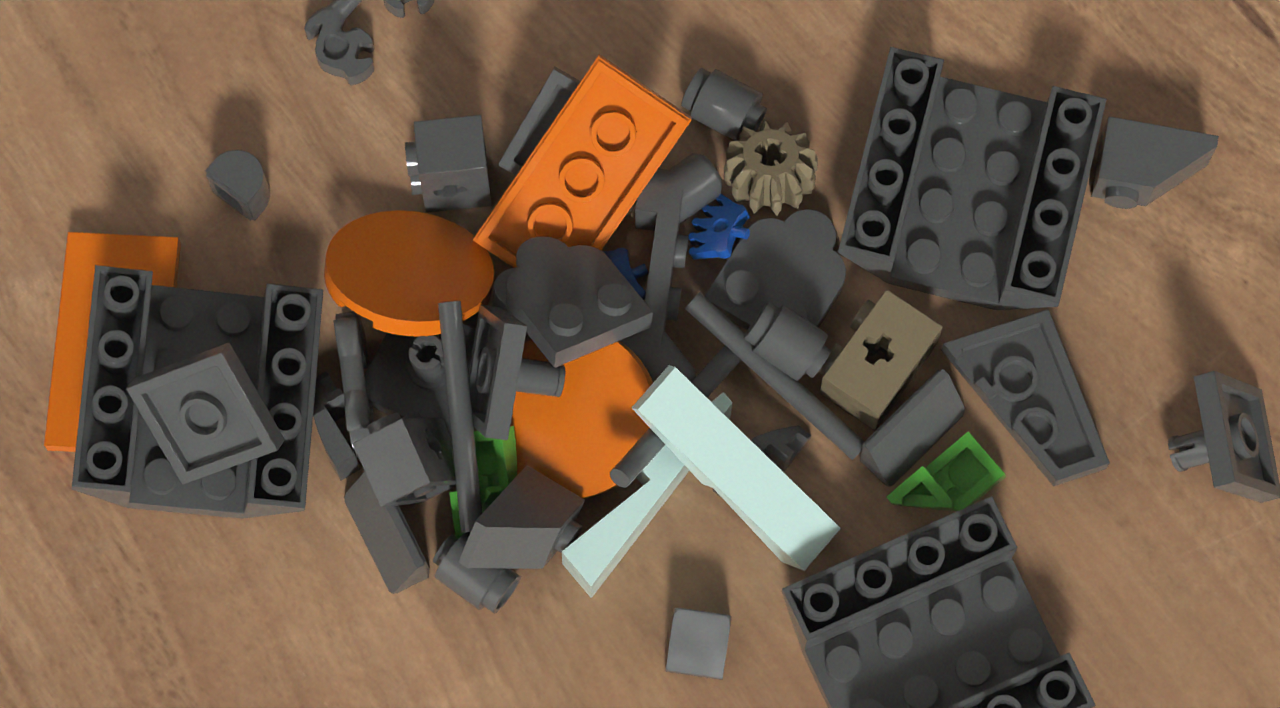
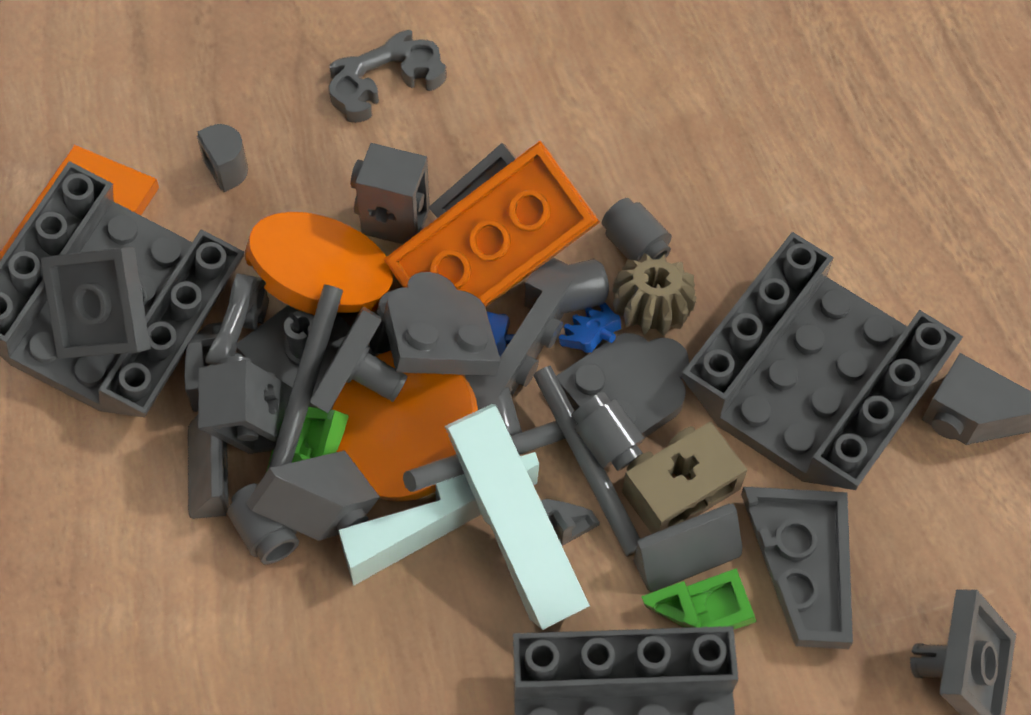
camera: 20 degrees right, 10 degrees down
(698, 643) = (425, 657): slope -> none

